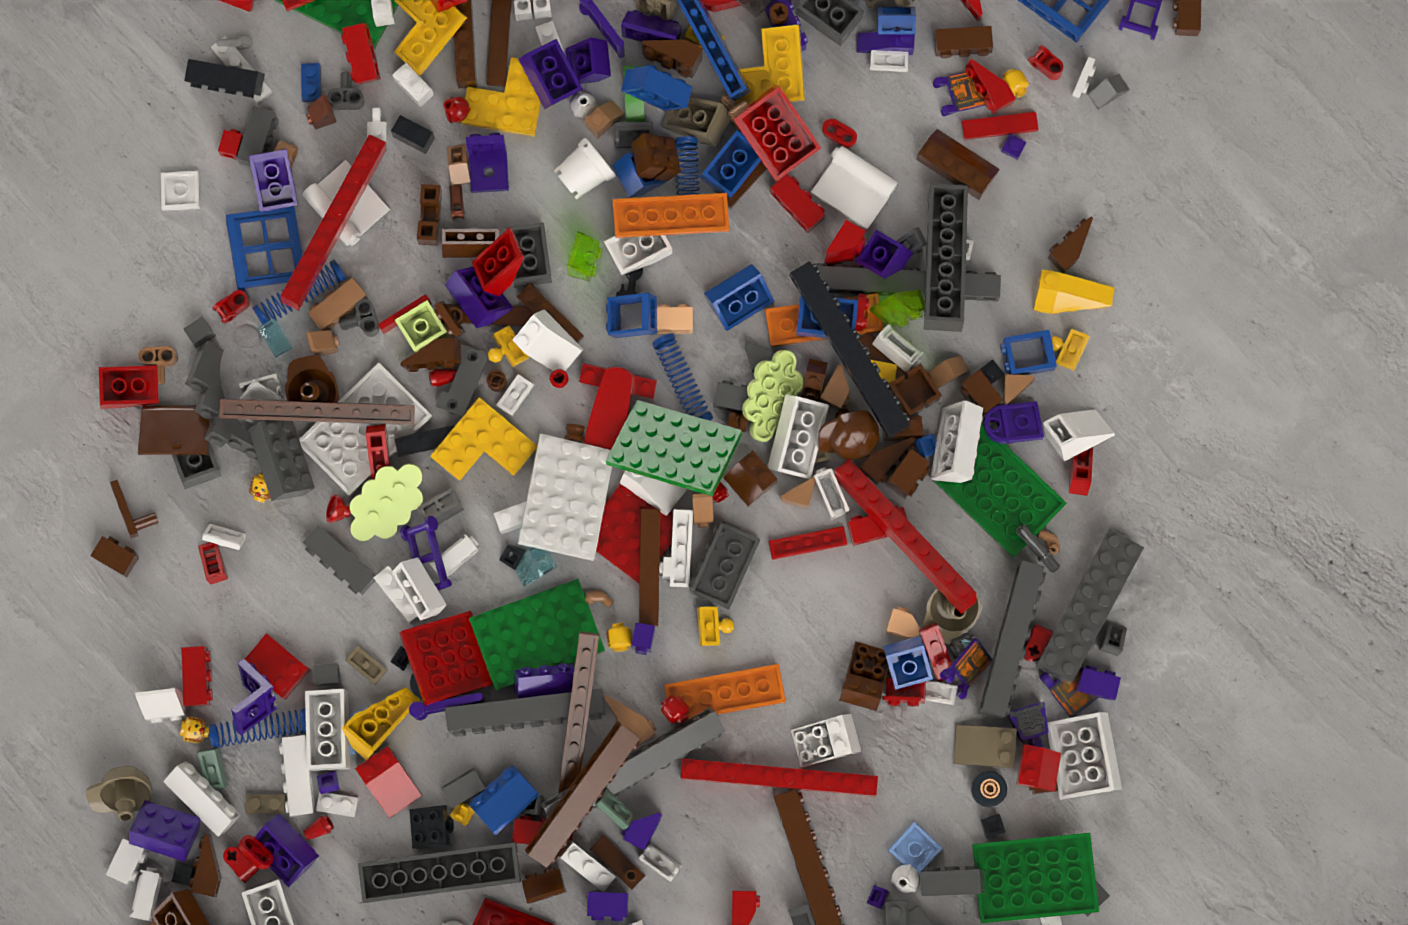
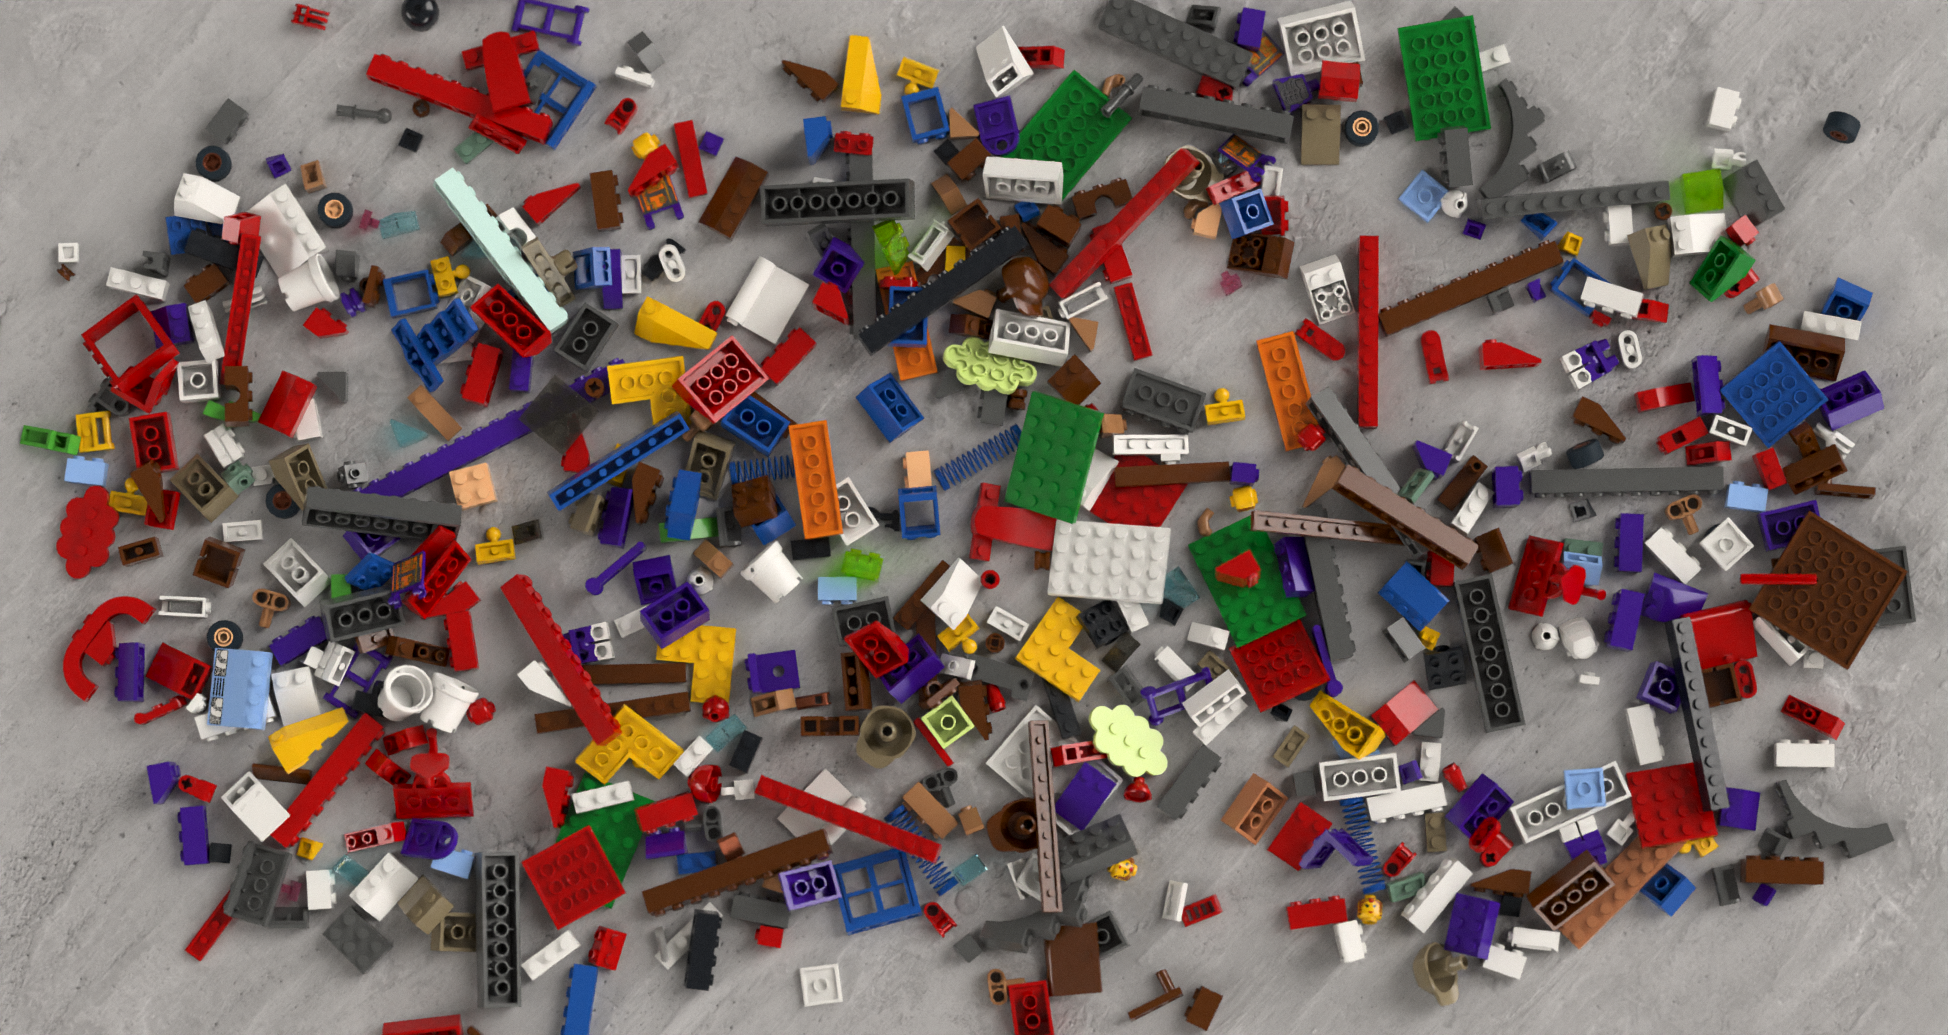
camera: 90 degrees left, 5 degrees up
(240, 763) = (1398, 859): none -> red piece
(295, 116) = (737, 873): none -> reddish brown brick
(306, 623) = (1254, 809): none -> nougat slope
(328, 50) = (666, 844): none -> dark purple slope
(336, 454) = (1084, 796): none -> dark purple slope
(371, 809) = (1432, 726): none -> dark grey slope
(385, 94) = (704, 783): none -> red cylinder
(413, 265) = (885, 736): none -> dark tan piece
(434, 119) = (726, 733): none -> clear light blue slope
(453, 596) = (1215, 665): none -> dark tan plate
(476, 341) = (957, 666): none -> white plate
(477, 504) = (1120, 652): none -> clear smoke slope
(484, 591) = (1208, 636): none -> white slope
(505, 486) = (1102, 623): none -> black plate
(543, 623) = (1239, 571): none -> red slope
(563, 232) = (837, 589): none -> light blue brick
(605, 215) = (810, 548): none -> black plate
(749, 844) = (1434, 356): none -> red plate
(773, 730) = (1321, 341): none -> red plate
(835, 90) = (666, 326): none -> yellow wedge
(838, 642) = (1230, 283): none -> clear pink tile
(898, 87) = (653, 267): none -> black piece
(898, 97) = (672, 262): none -> white plate
(919, 610) = (1192, 206): none -> medium nougat arm
(931, 504) = (1117, 192): none -> reddish brown arch
(1003, 281) = (853, 144): none -> red bracket
(1011, 241) = (817, 135): none -> blue slope

